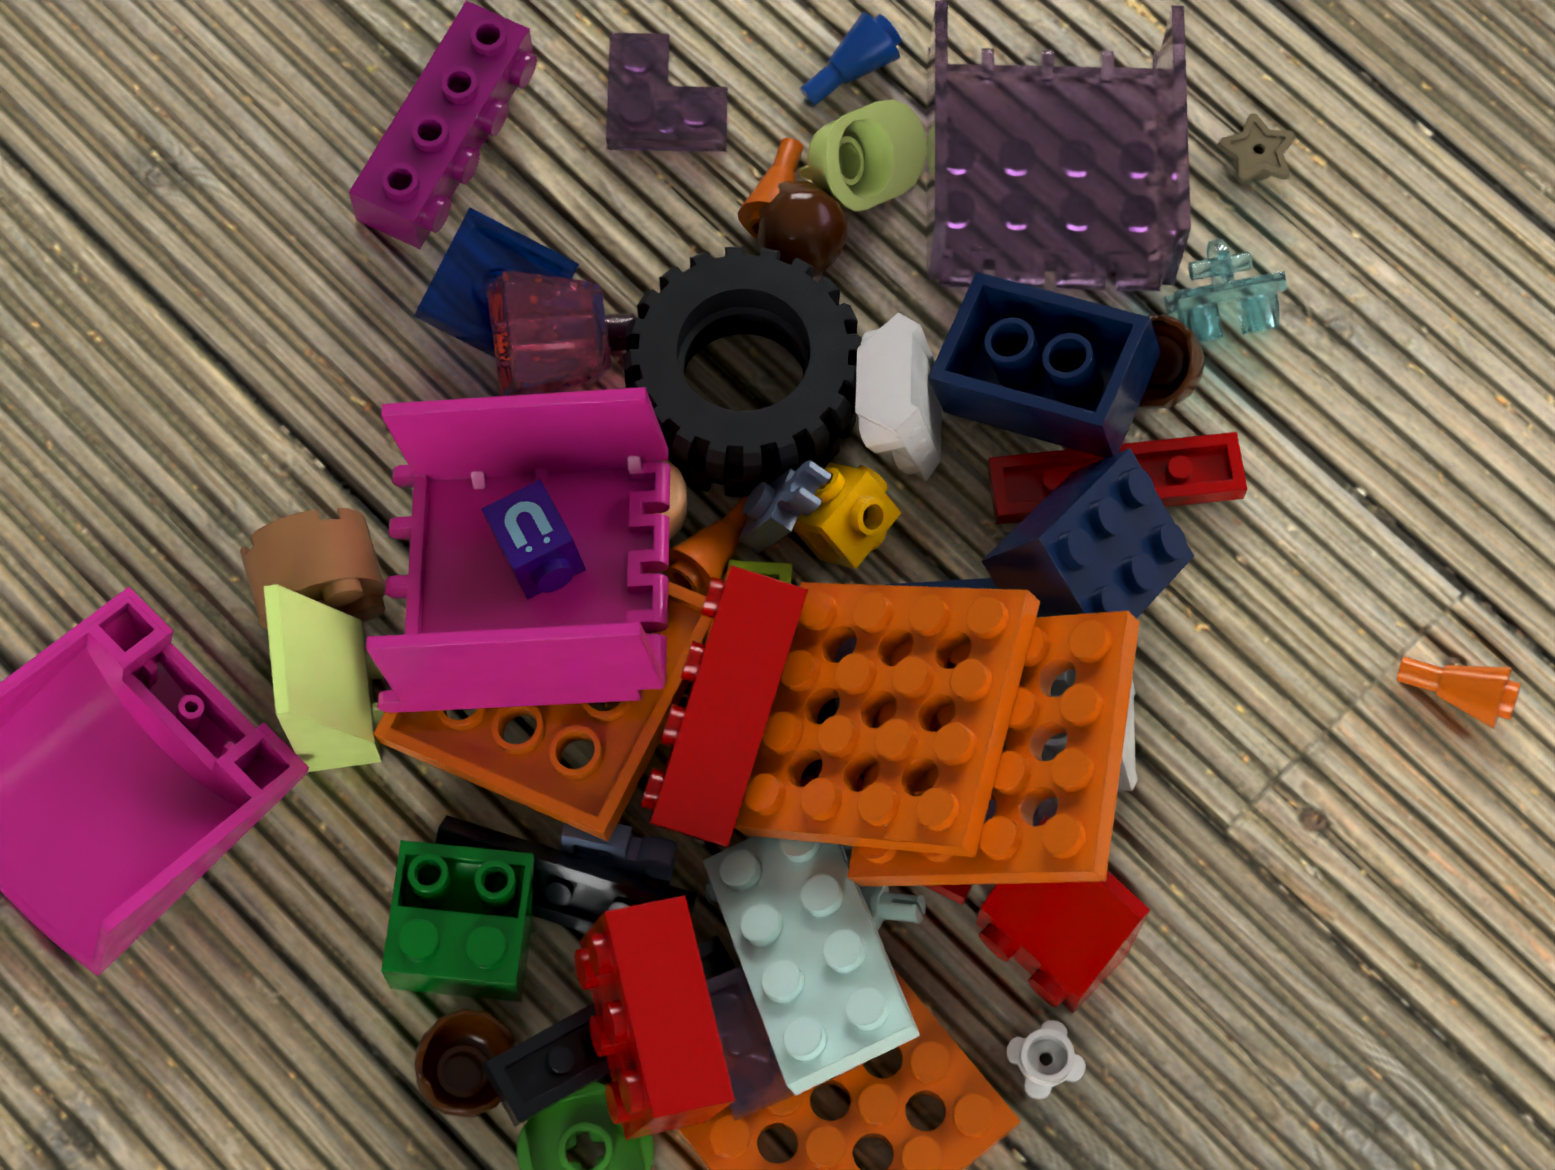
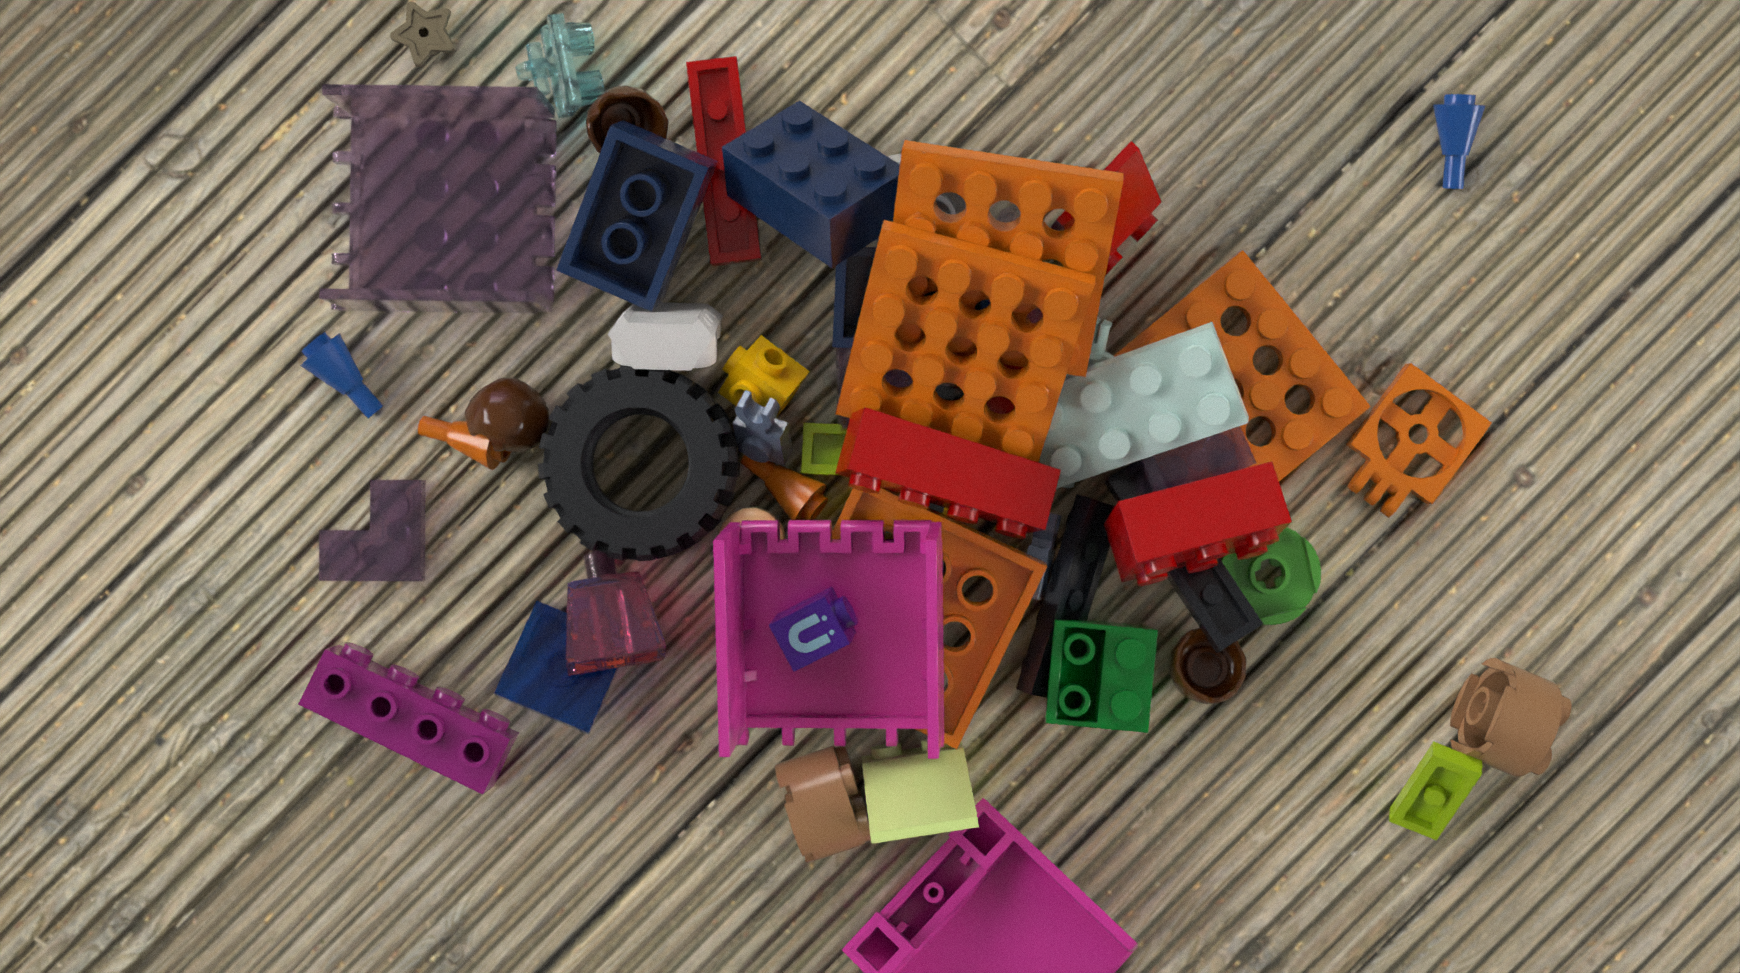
camera: 90 degrees left, 20 degrees up
(868, 155) = (438, 361): yellowish green piece -> none
(1049, 1040) = (1198, 216): white plate -> none

